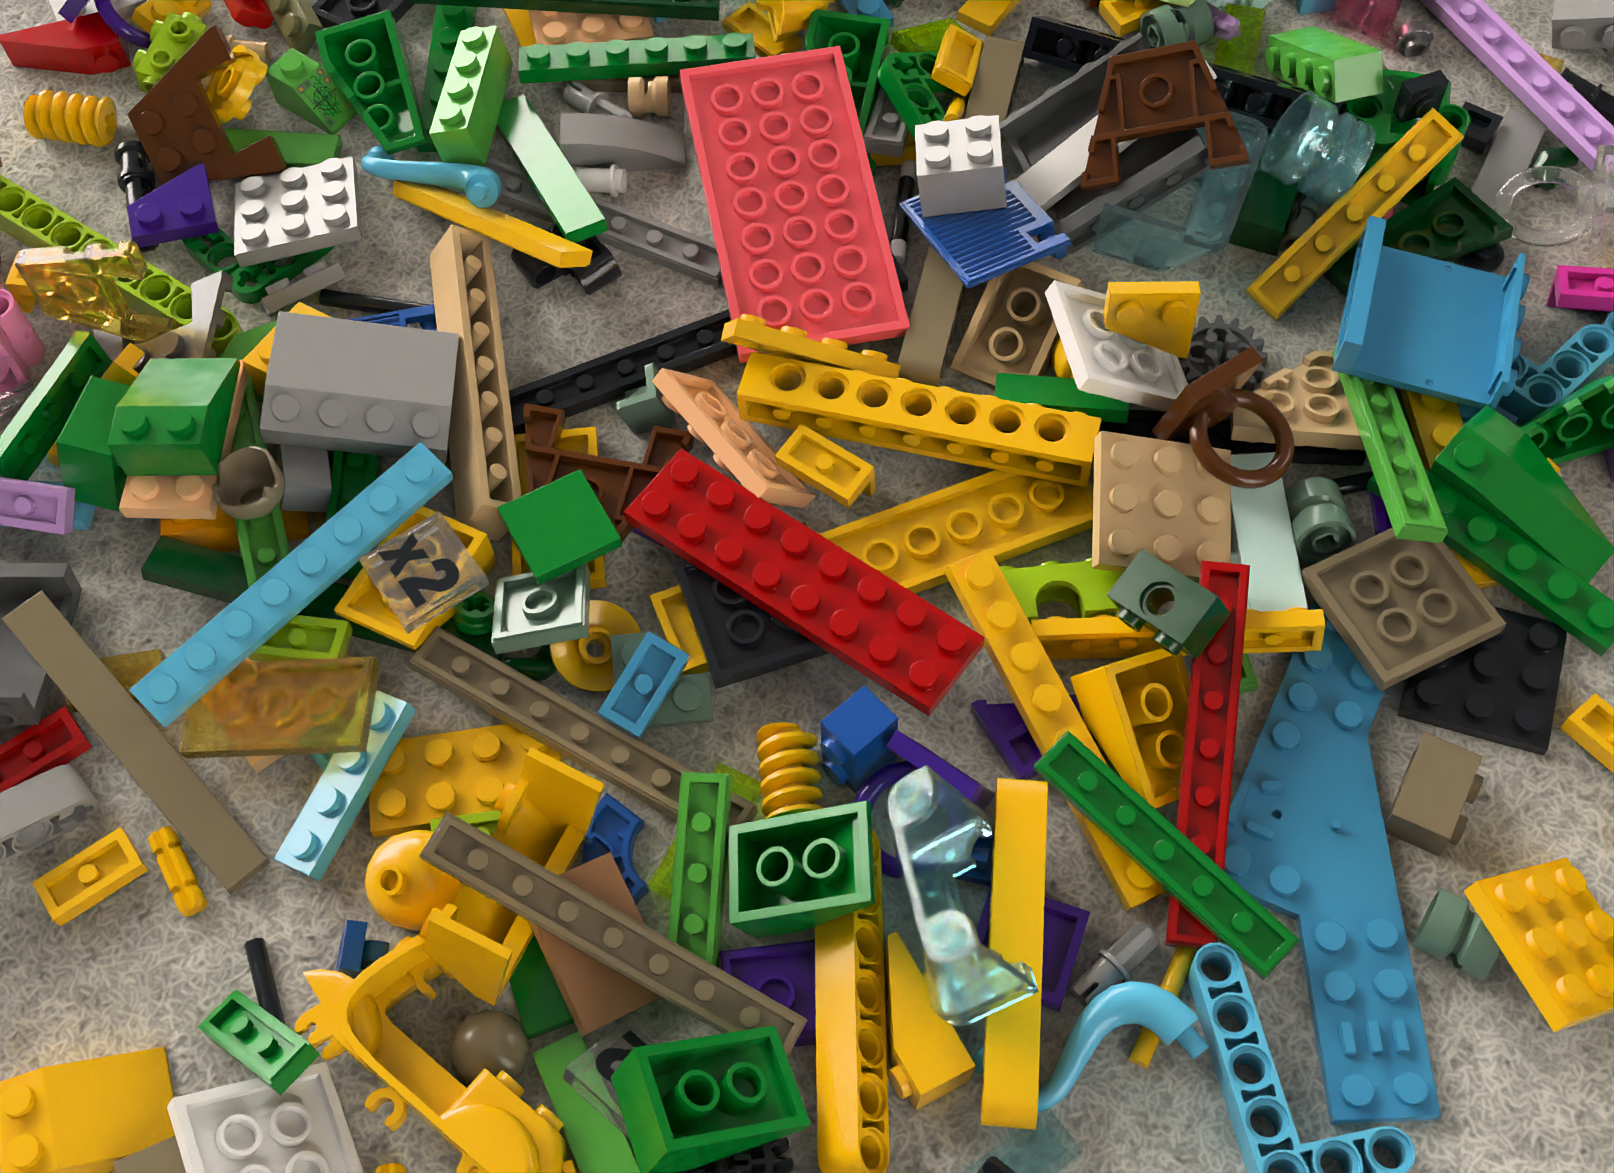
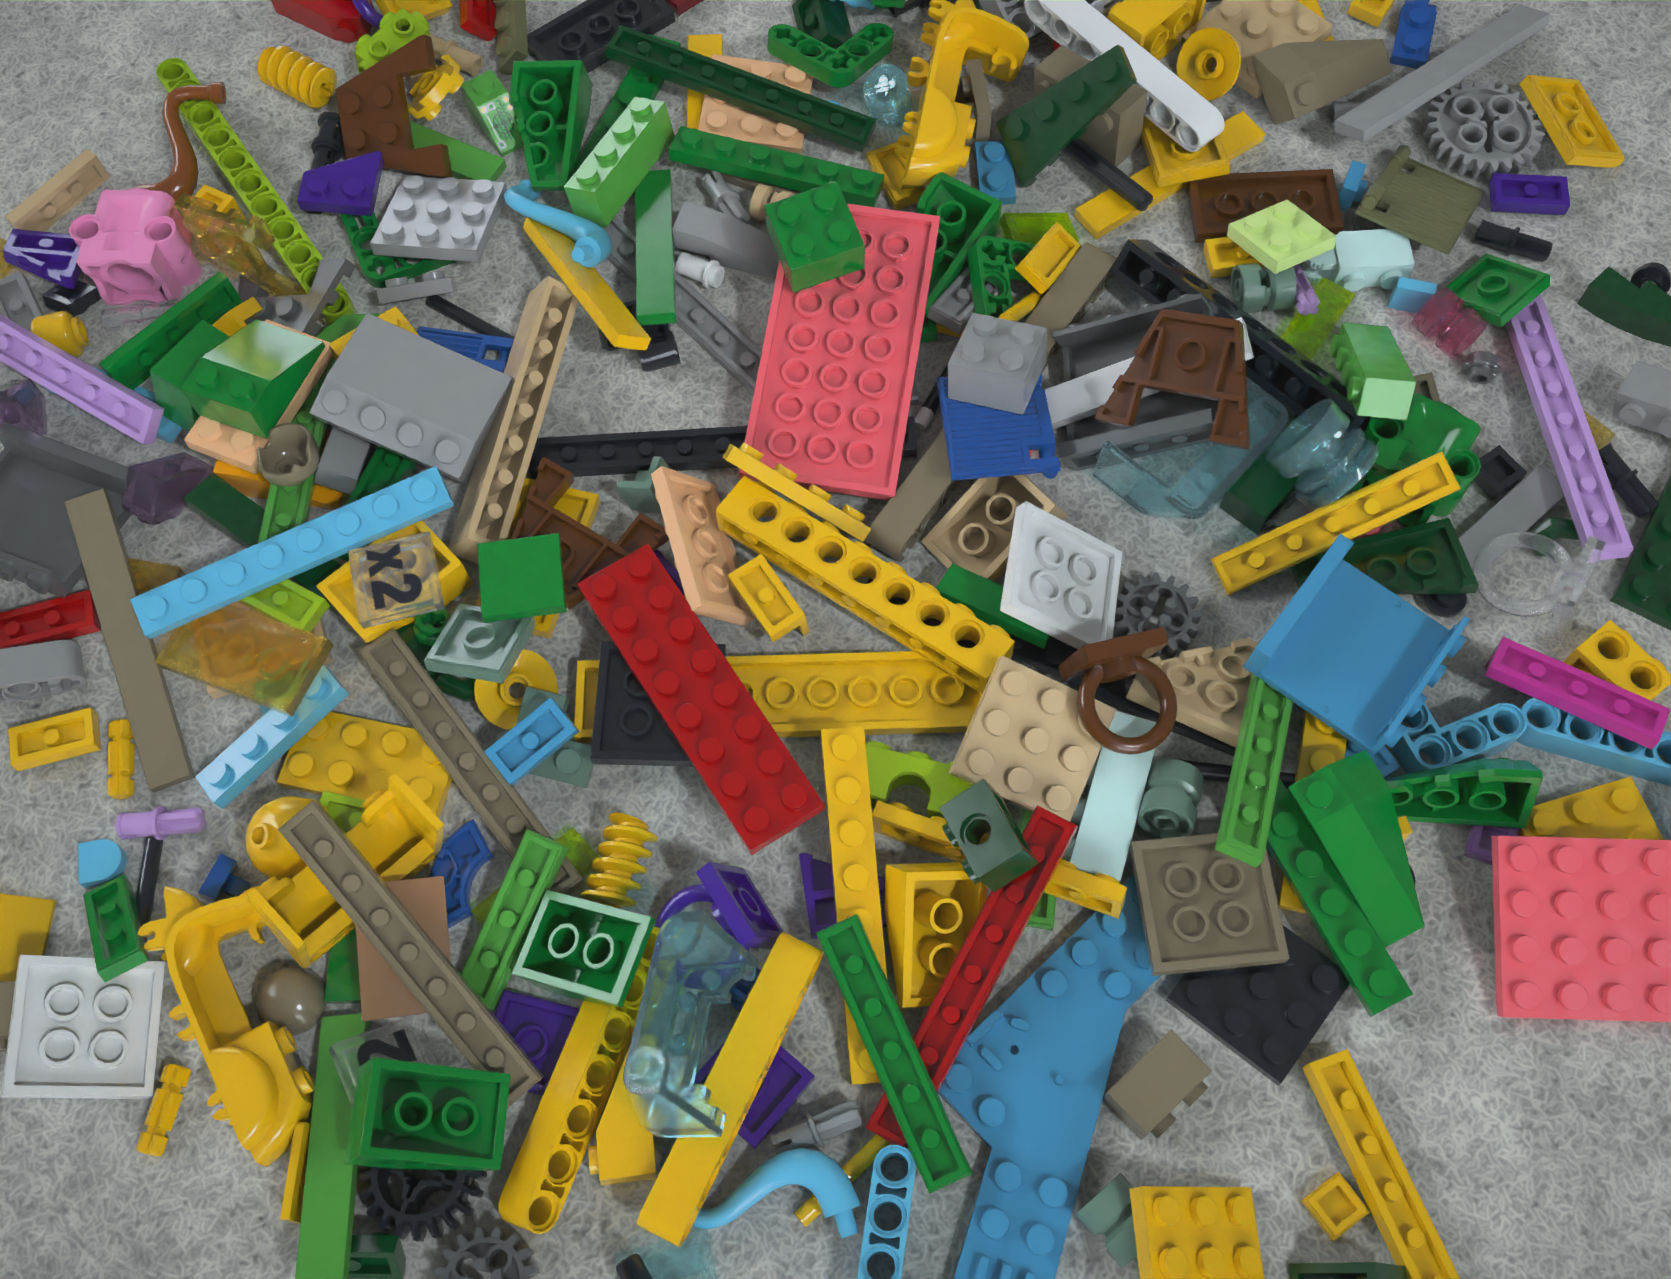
camera: 20 degrees right, 5 degrees up
(103, 574) = (158, 486): none -> clear purple slope
(201, 986) = (100, 862): none -> medium azure tile
(254, 920) = (160, 823): none -> lavender axle
(725, 97) = (815, 236): none -> green brick
(856, 739) = (681, 851): blue brick -> none
(1154, 313) = (1101, 560): yellow wing -> none
(1420, 95) = (1437, 435): black plate -> none

